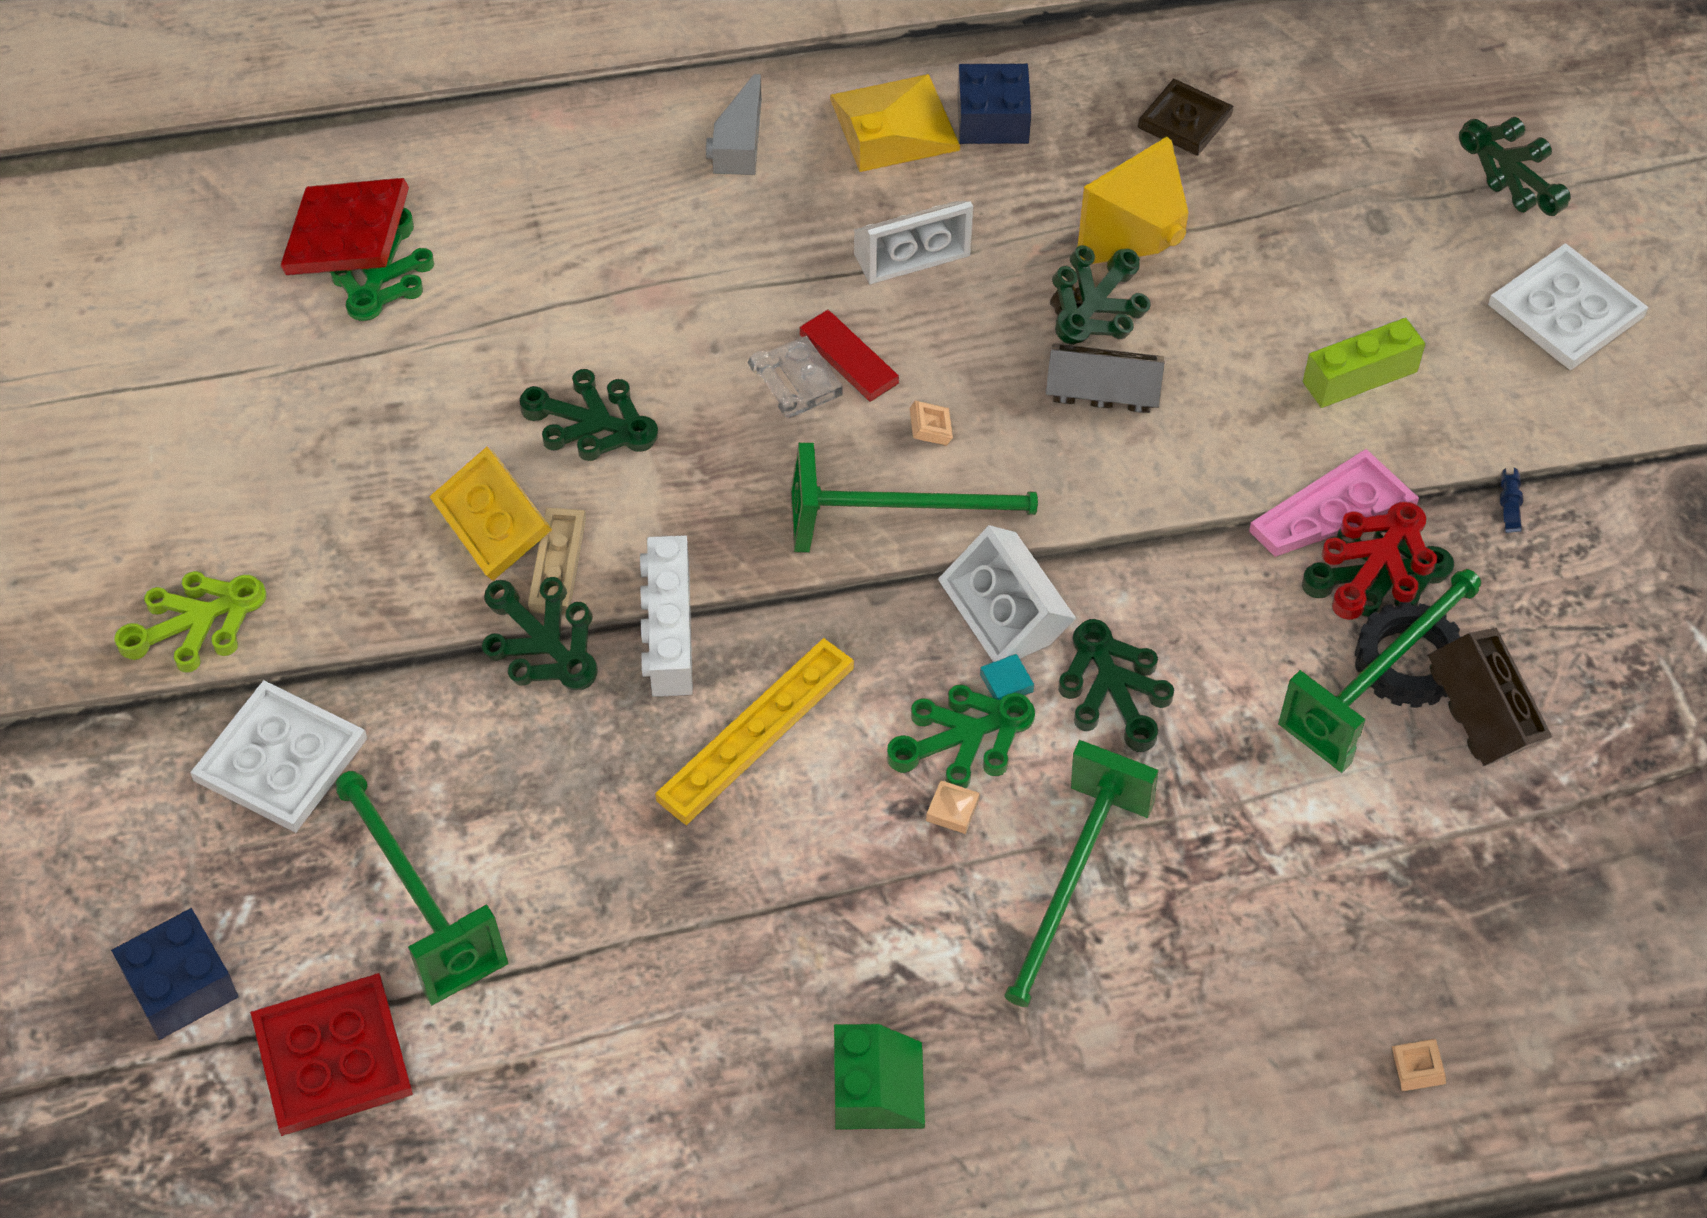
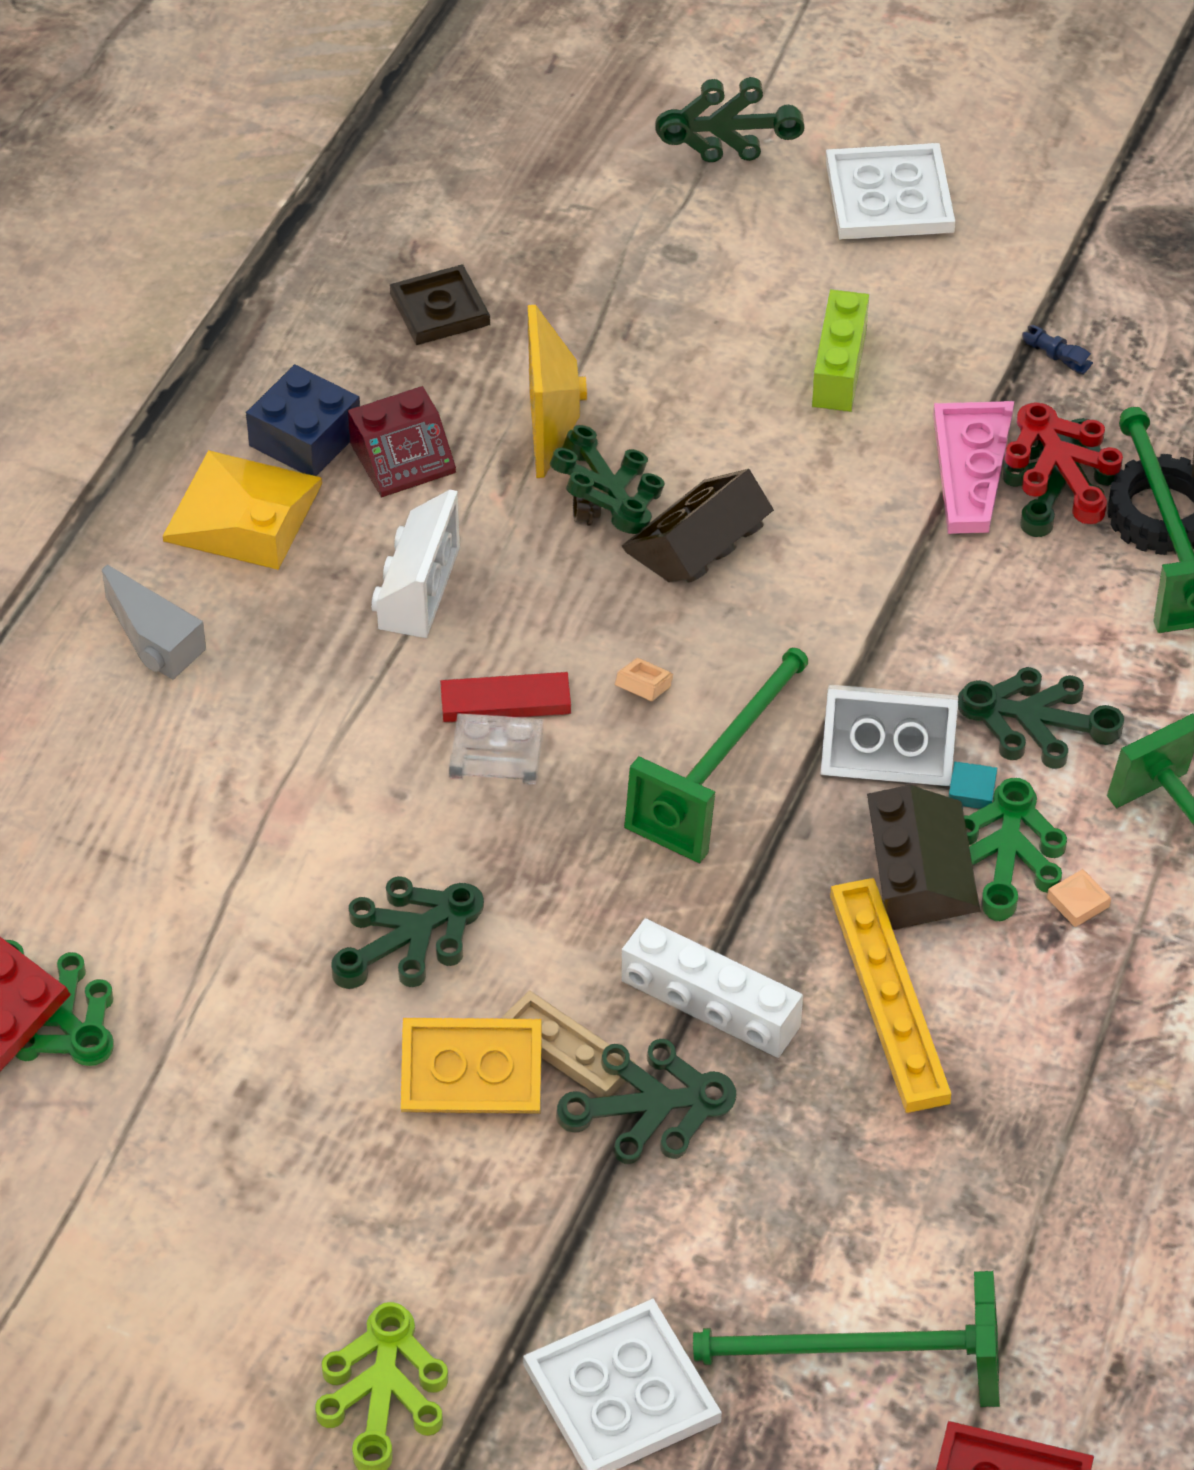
camera: 55 degrees left, 5 degrees down
(896, 677) = (922, 856): none -> dark brown slope
(1026, 165) = (400, 441): none -> dark red slope

